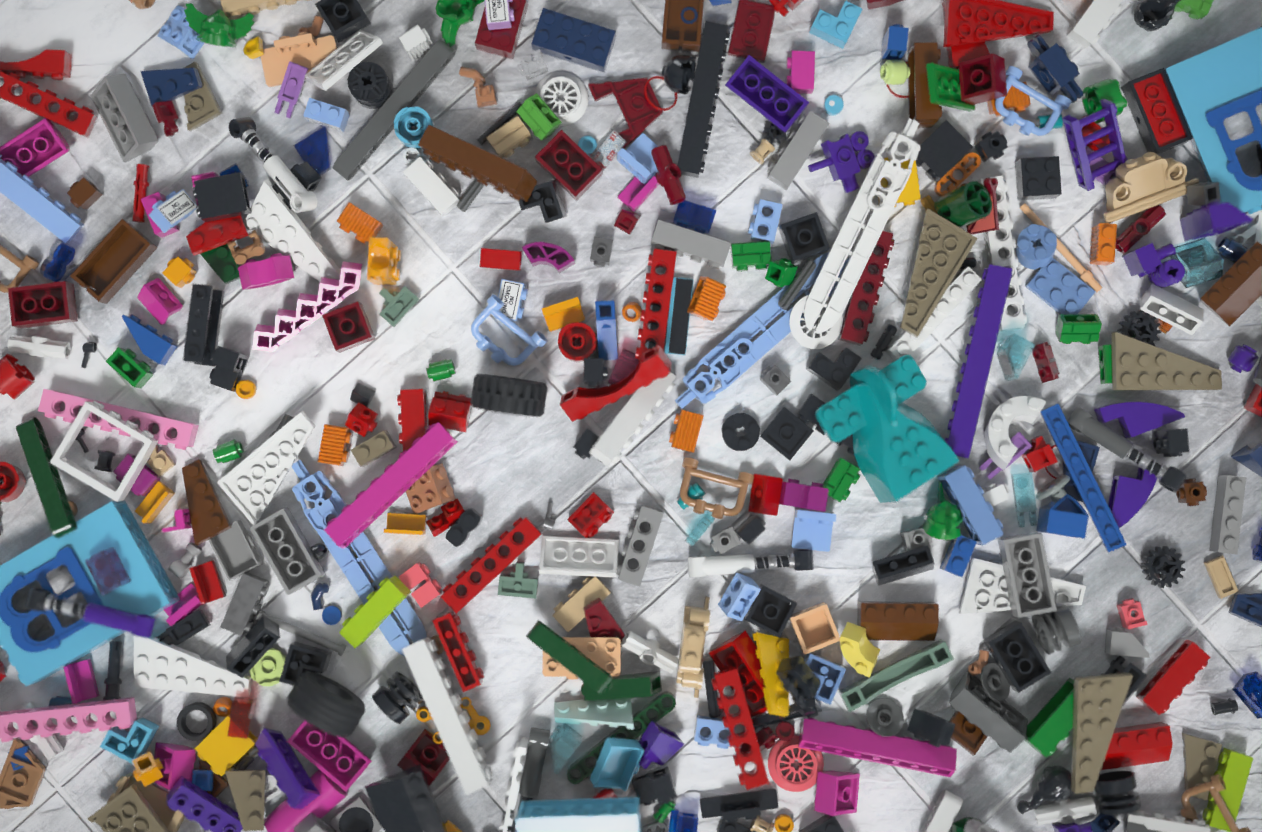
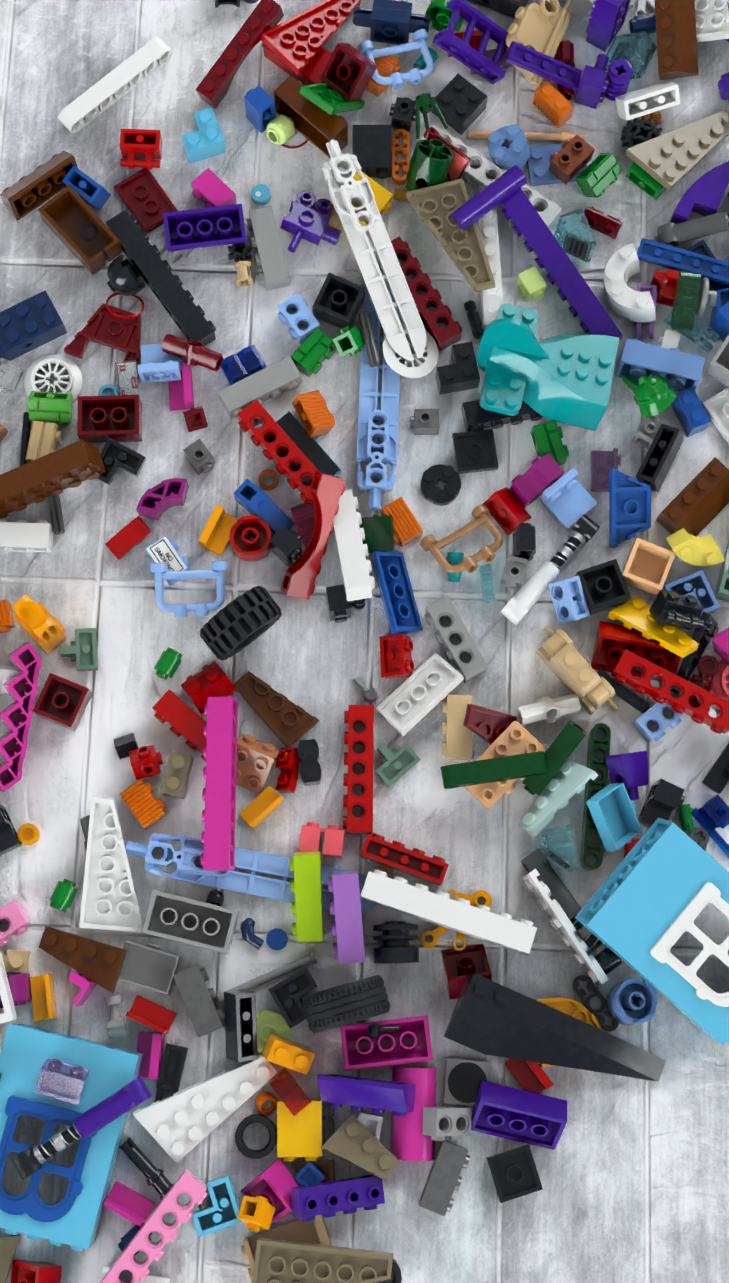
camera: 50 degrees left, 10 degrees down
(264, 694) = (288, 1053): none -> light orange brick
(329, 737) = (374, 1029): none -> black hand
(386, 648) = (348, 917): none -> medium lavender brick
(478, 473) = (281, 715): none -> reddish brown wing
(635, 475) = (396, 592): none -> blue slope
(662, 423) = (378, 533): none -> dark green piece
(845, 576) = (627, 507): none -> blue wing
(858, 535) = (600, 465): none -> clear purple bracket
(947, 358) = (531, 284): none -> yellowish green brick
(978, 272) = (489, 197): none -> dark purple brick
(1011, 154) = (424, 104): none -> dark green plant
(1036, 479) = (685, 301): none -> clear green beam
(1069, 298) = (570, 159): none -> copper brick
(1122, 213) = (543, 65): none -> dark purple tile

